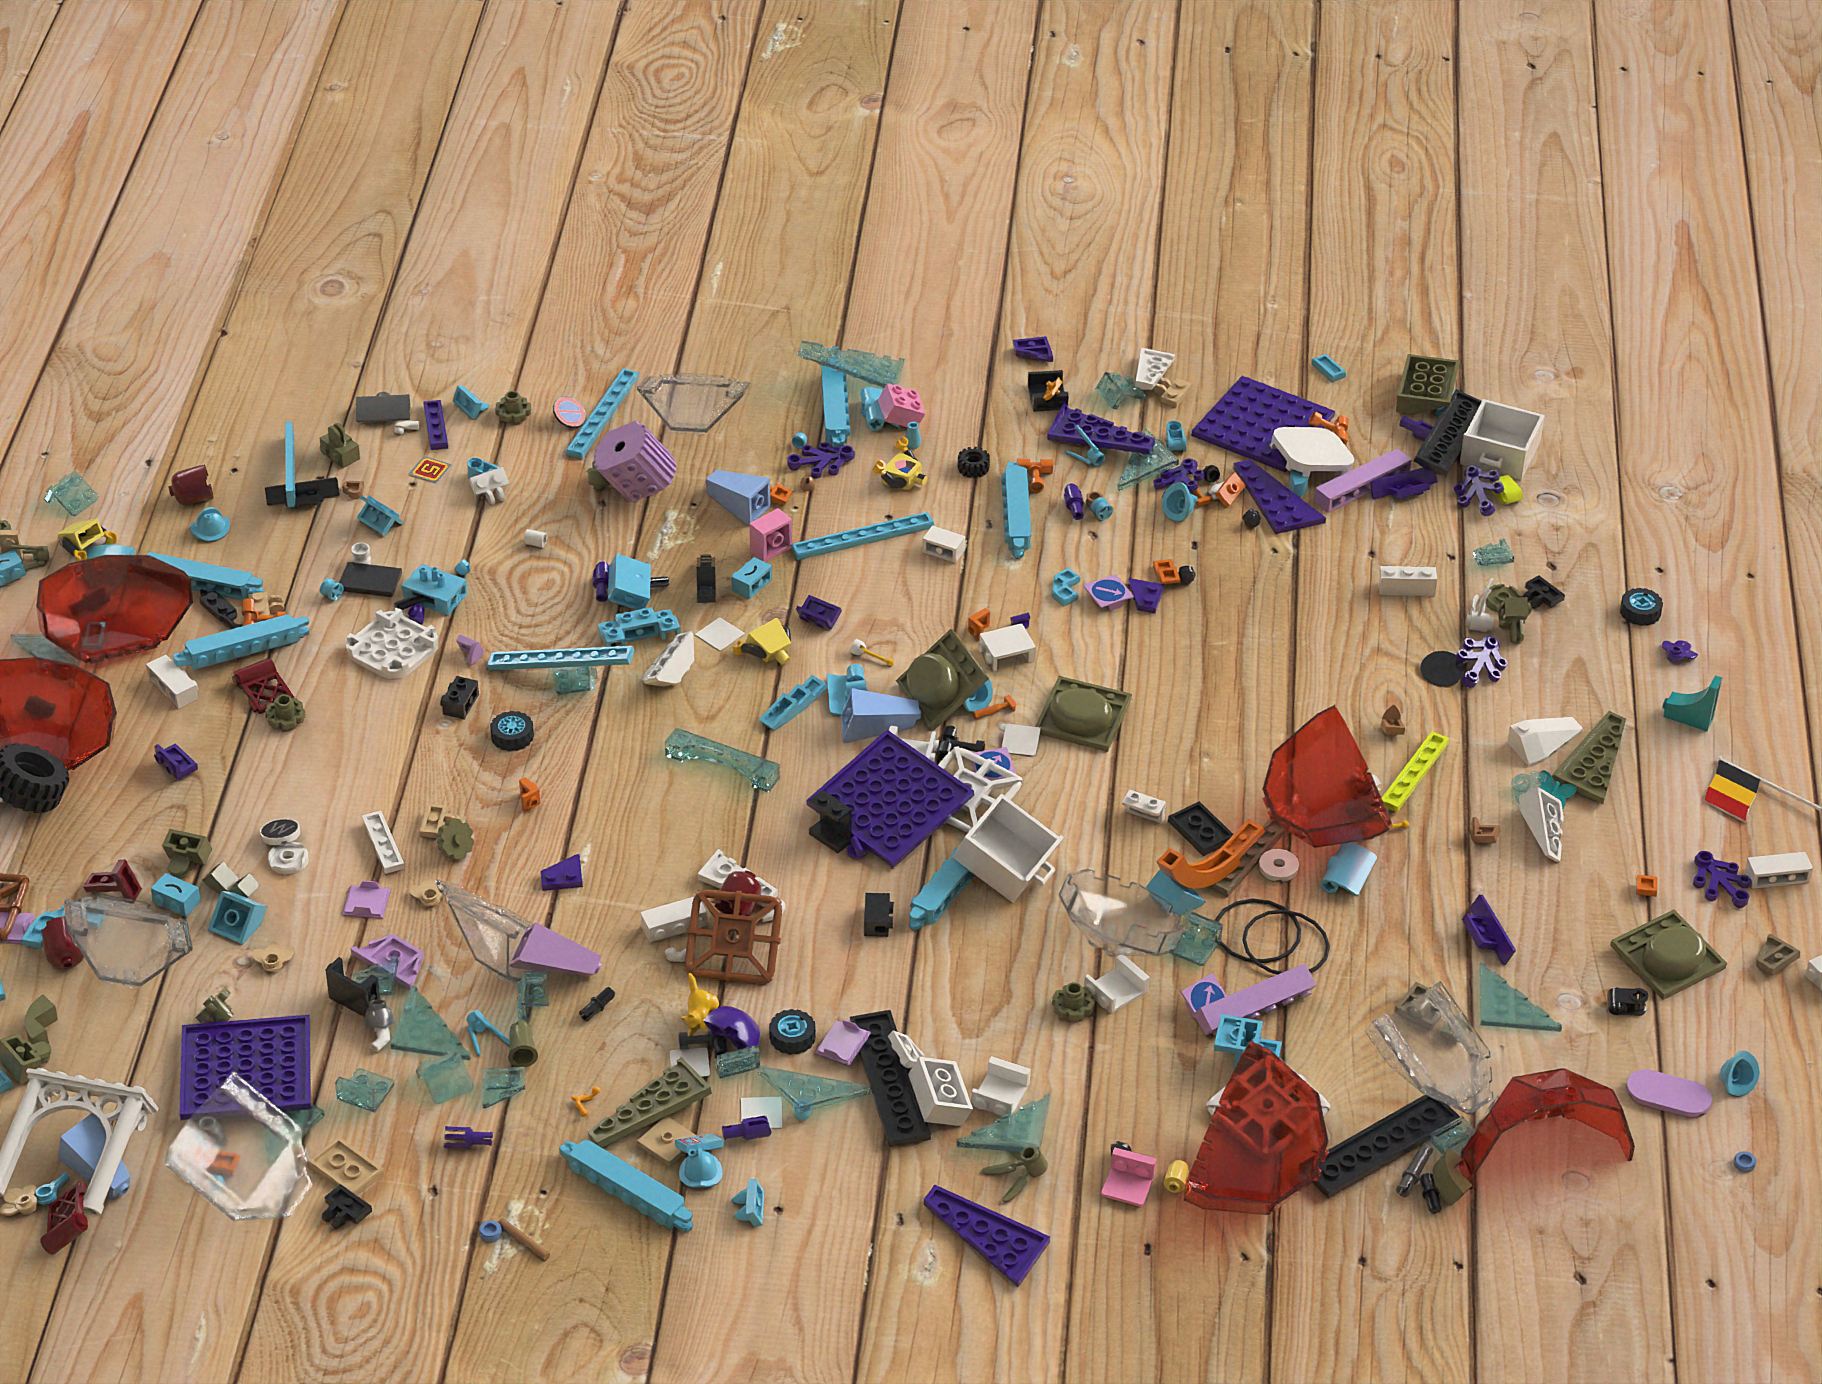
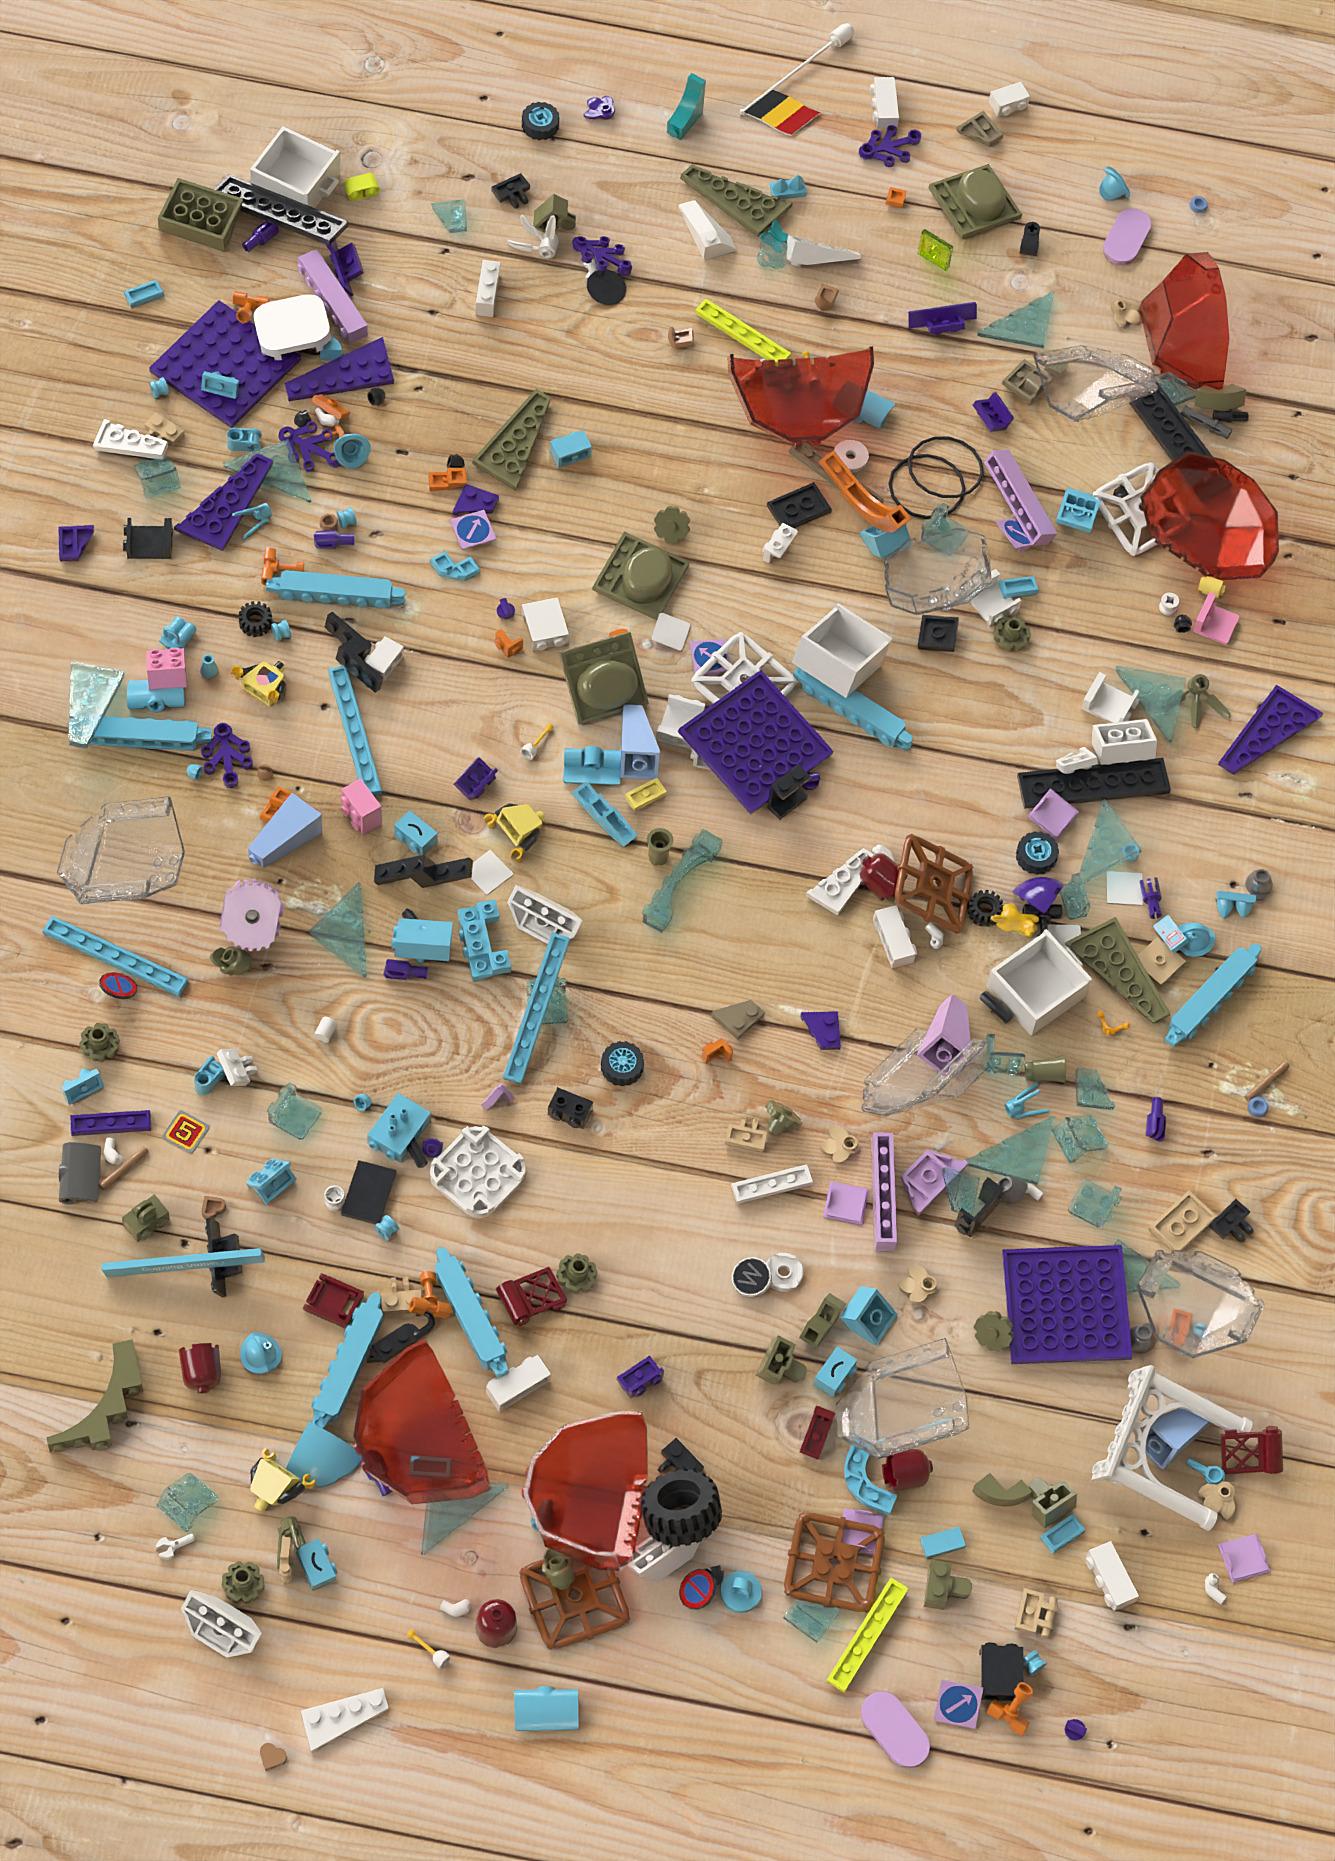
camera: 90 degrees left, 20 degrees up
(31, 492) = (163, 1542): none -> white bar
(90, 797) = (679, 1457): none -> black hinge
(161, 445) = (111, 1408): none -> olive arch
(264, 564) = (330, 1299): none -> dark red container
(371, 917) = (883, 1191): none -> lavender brick
(391, 435) = (123, 1168): none -> medium nougat bar
(450, 522) = (293, 1112): none -> clear light blue bracket
(571, 812) = (738, 1017): none -> dark tan wing
(623, 1028) = (1039, 982): none -> white container
(643, 543) = (343, 930): none -> clear light blue tile
(720, 982) = (979, 898): none -> black tyre
(751, 731) = (659, 845): none -> olive plant
(780, 1229) = (1259, 883): none -> flat silver piece
(820, 730) = (645, 794): none -> light yellow plate
(876, 915) = (898, 771): black brick -> none
(945, 416) = (177, 633): none -> medium azure piece
(945, 519) = (353, 652): none -> black bracket
(951, 740) = (675, 685): black bar -> none
(963, 477) = (281, 630): none -> medium azure wheel
(1052, 388) = (168, 529): light orange piece -> none
(1061, 942) = (938, 633): none -> black plate
(1138, 1008) = (1018, 587): none -> medium azure tile
(1144, 1139) = (1169, 608): none -> white wheel
(1148, 725) = (672, 524): none -> olive plant
(1215, 611) = (511, 446): none -> olive wing
(1219, 382) = (159, 388): none -> medium azure wheel
(1225, 652) = (570, 448): none -> medium azure brick
(1229, 410) = (220, 384): none -> medium azure tile
(1366, 975) = (994, 412): none -> dark purple bracket
(1473, 474) = (357, 206): plant -> none
(1498, 594) = (509, 222): olive tile -> none
(1575, 911) = (935, 250): none -> clear neon green tile
(1626, 799) = (788, 188): none -> medium azure tile

